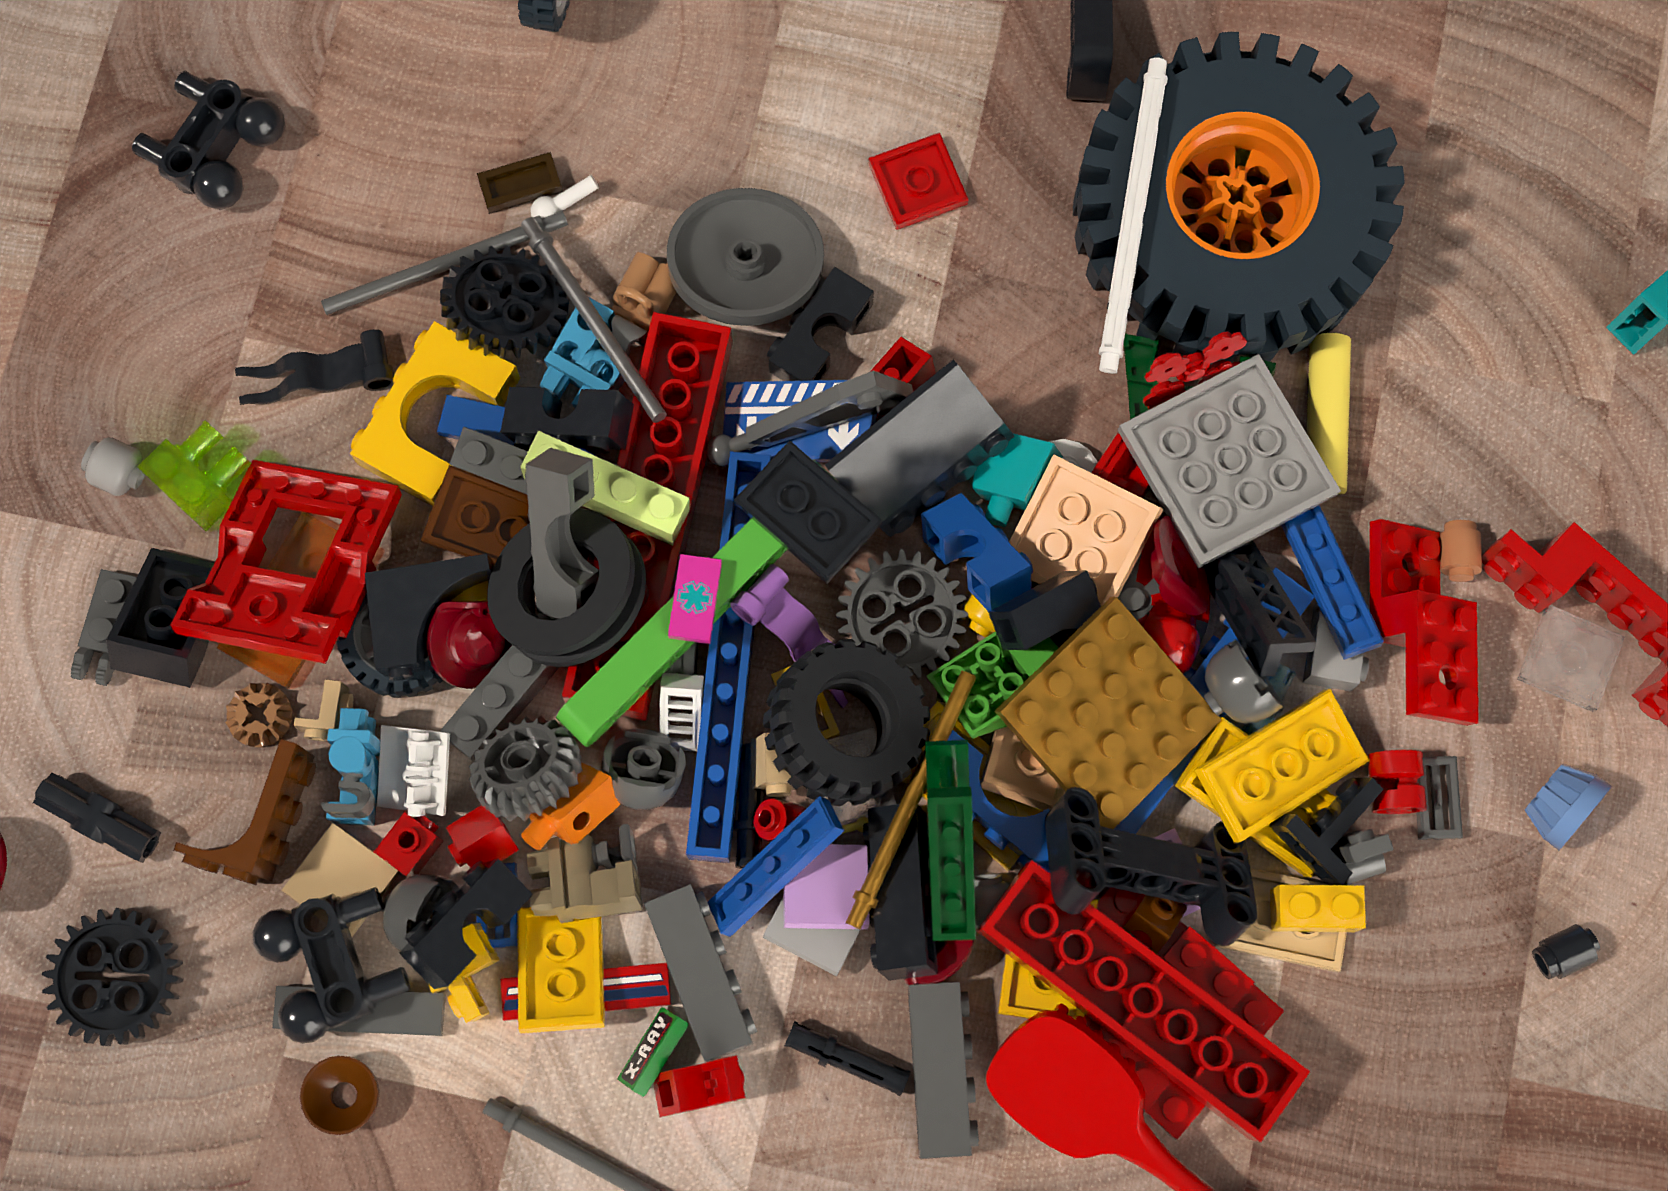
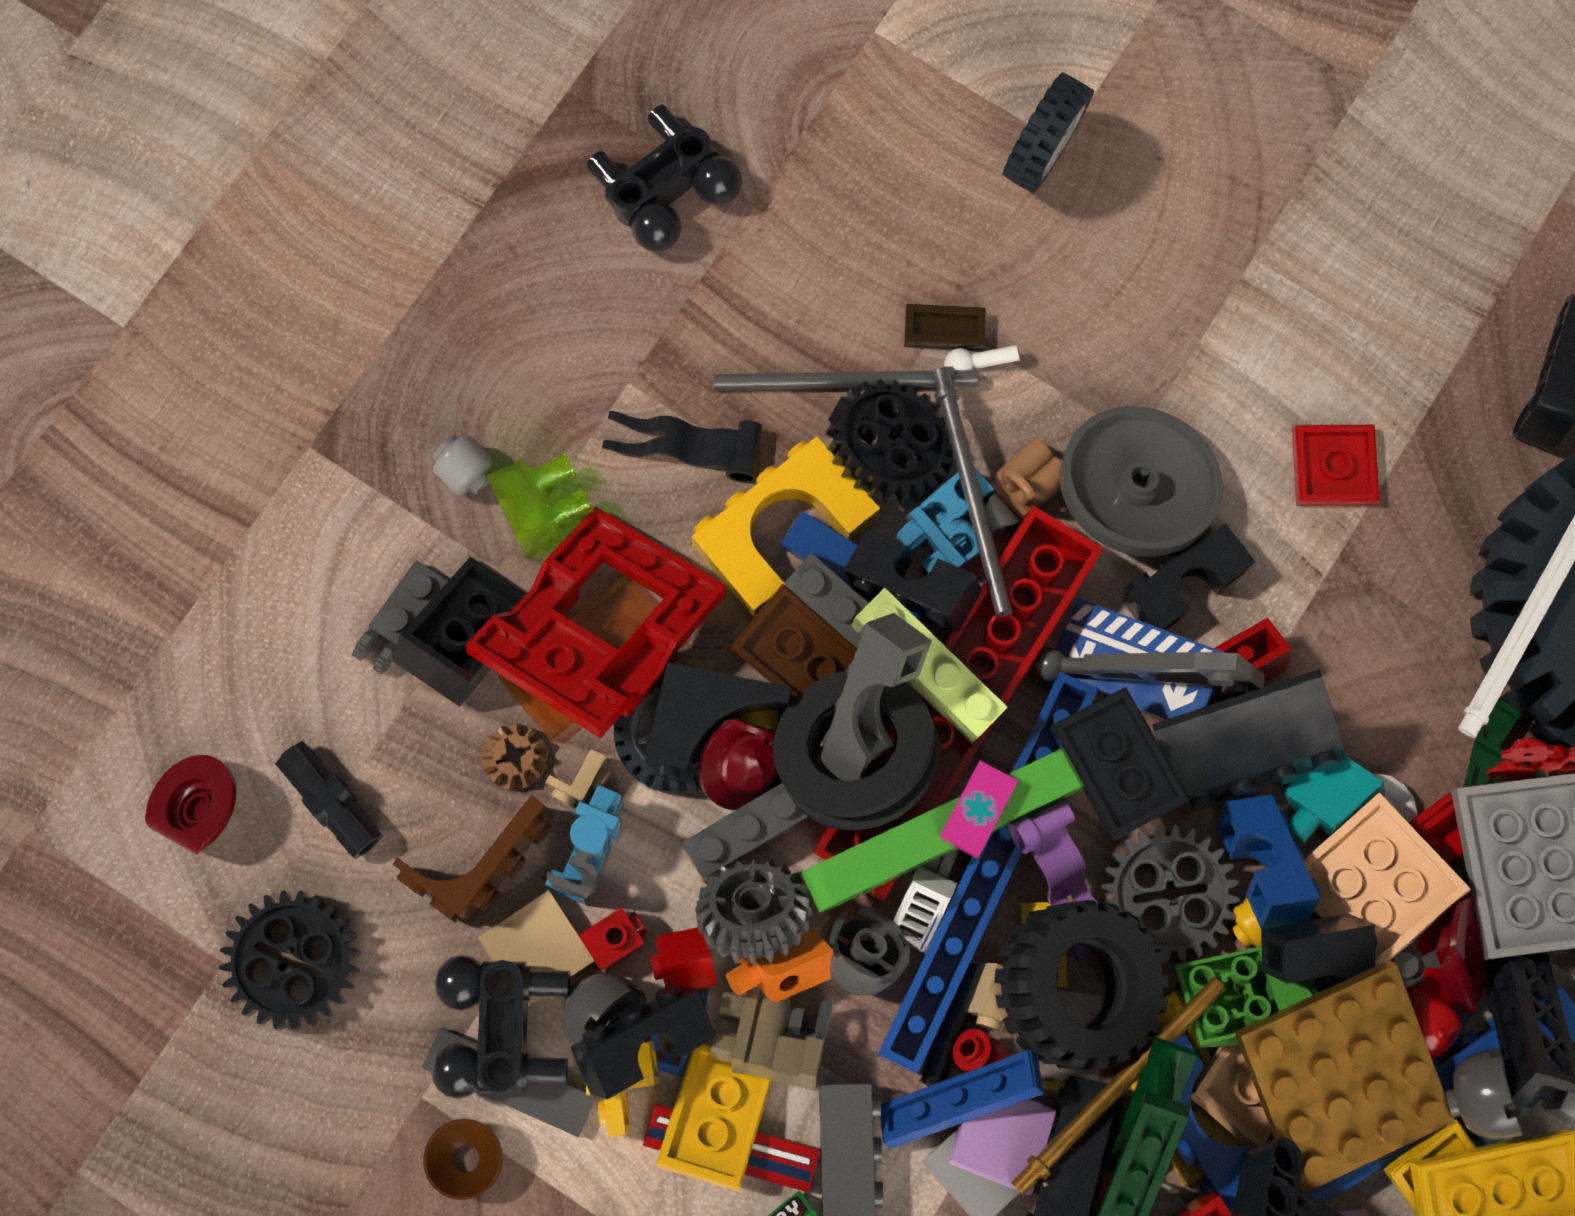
camera: 20 degrees right, 0 degrees up
(413, 770) = (643, 869): white hinge -> none

